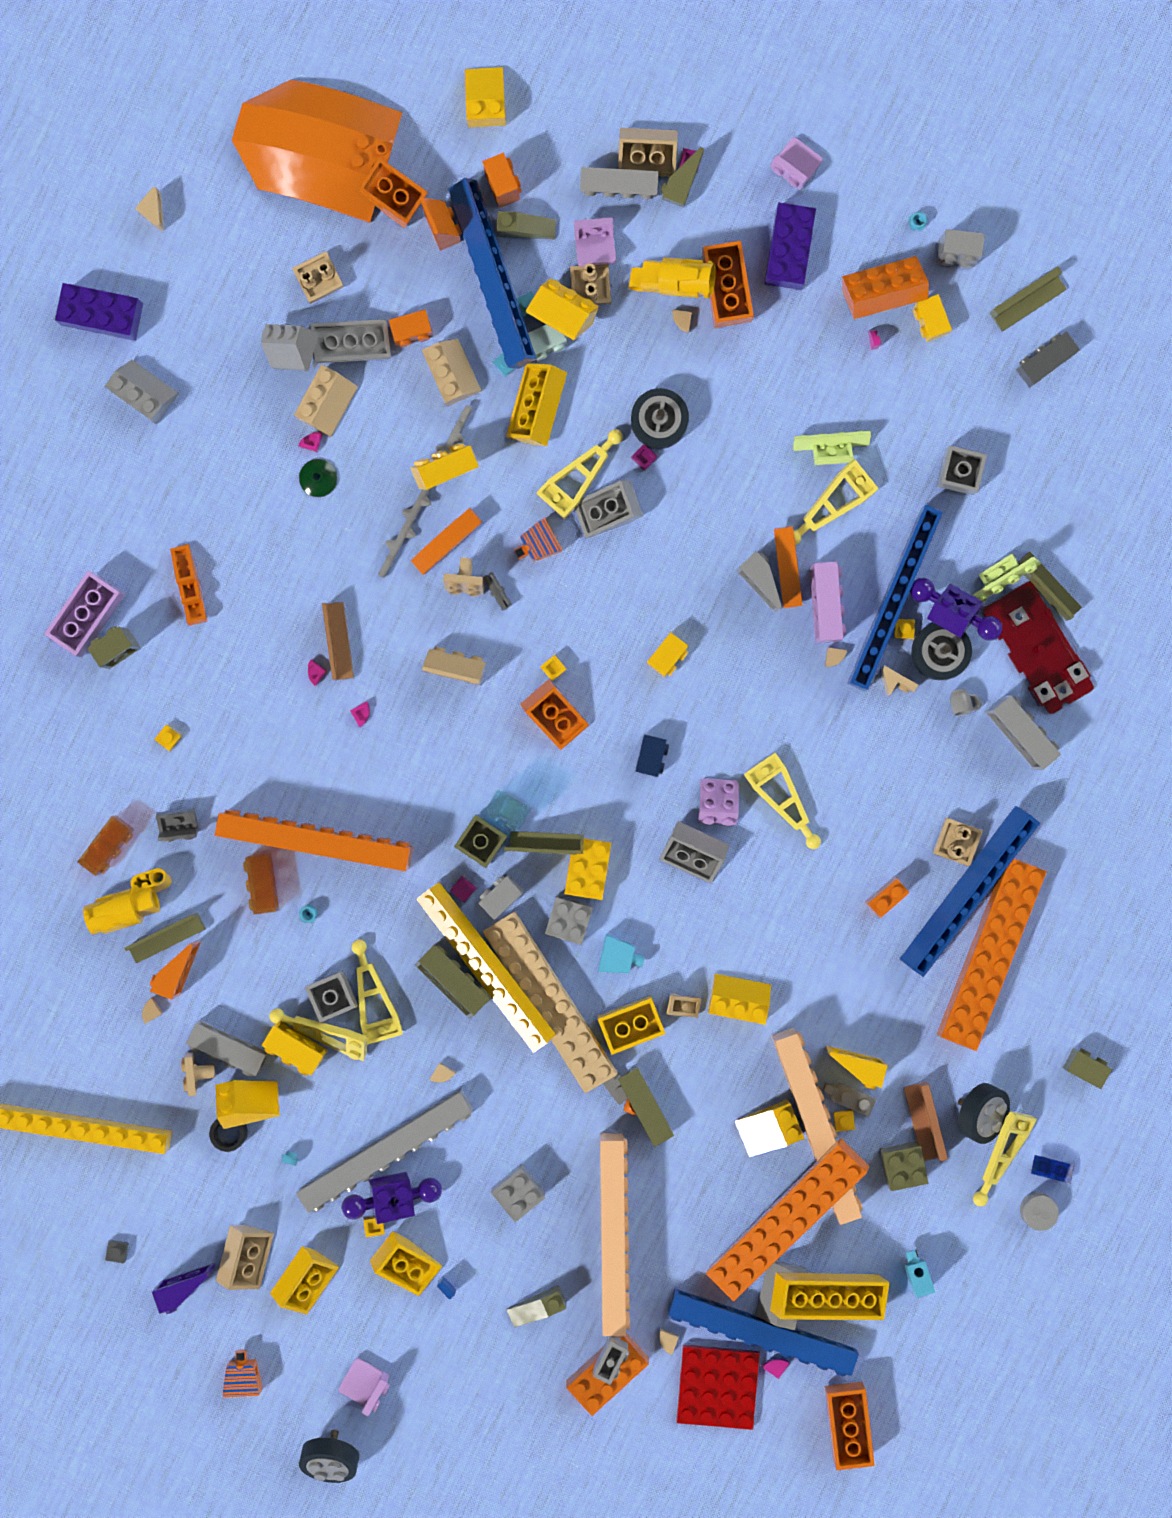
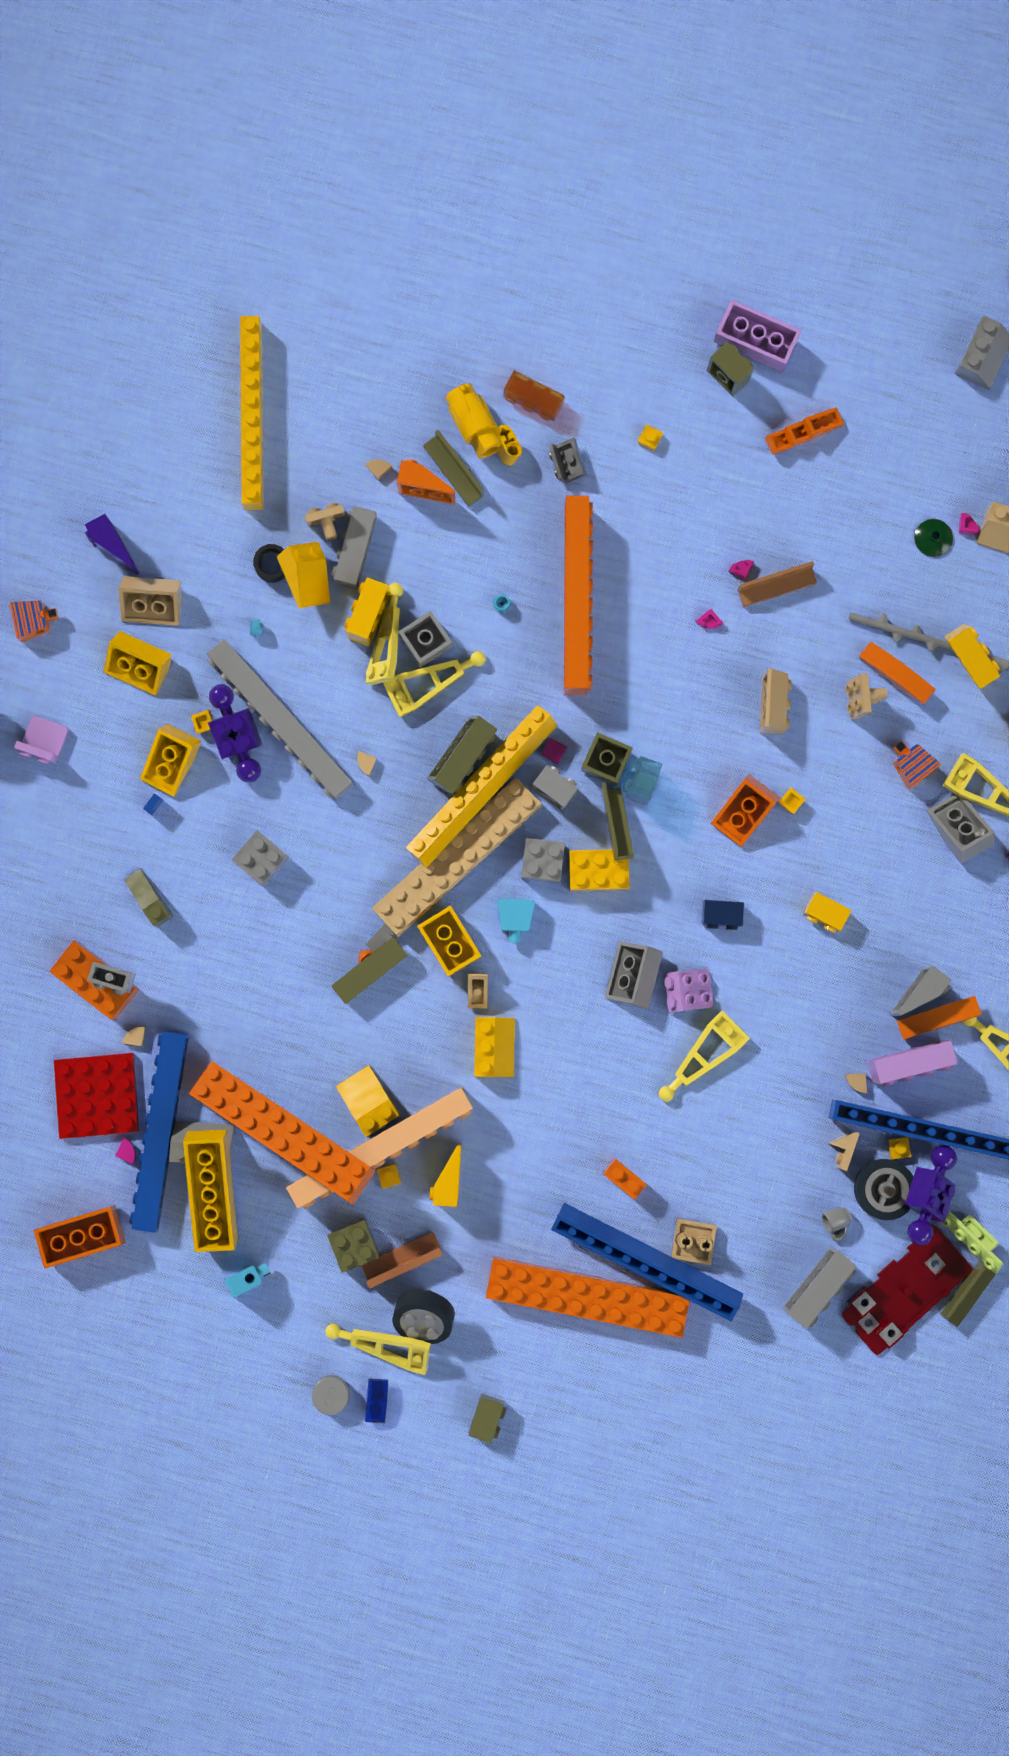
camera: 85 degrees right, 5 degrees down
(116, 1251) = (135, 476): dark grey plate -> none
(261, 884) = (523, 552): clear orange brick -> none
(497, 591) = (857, 732): dark grey pin -> none
(613, 1238) = (234, 960): light nougat brick -> none
(850, 1098) = (412, 1178): light grey hinge -> none

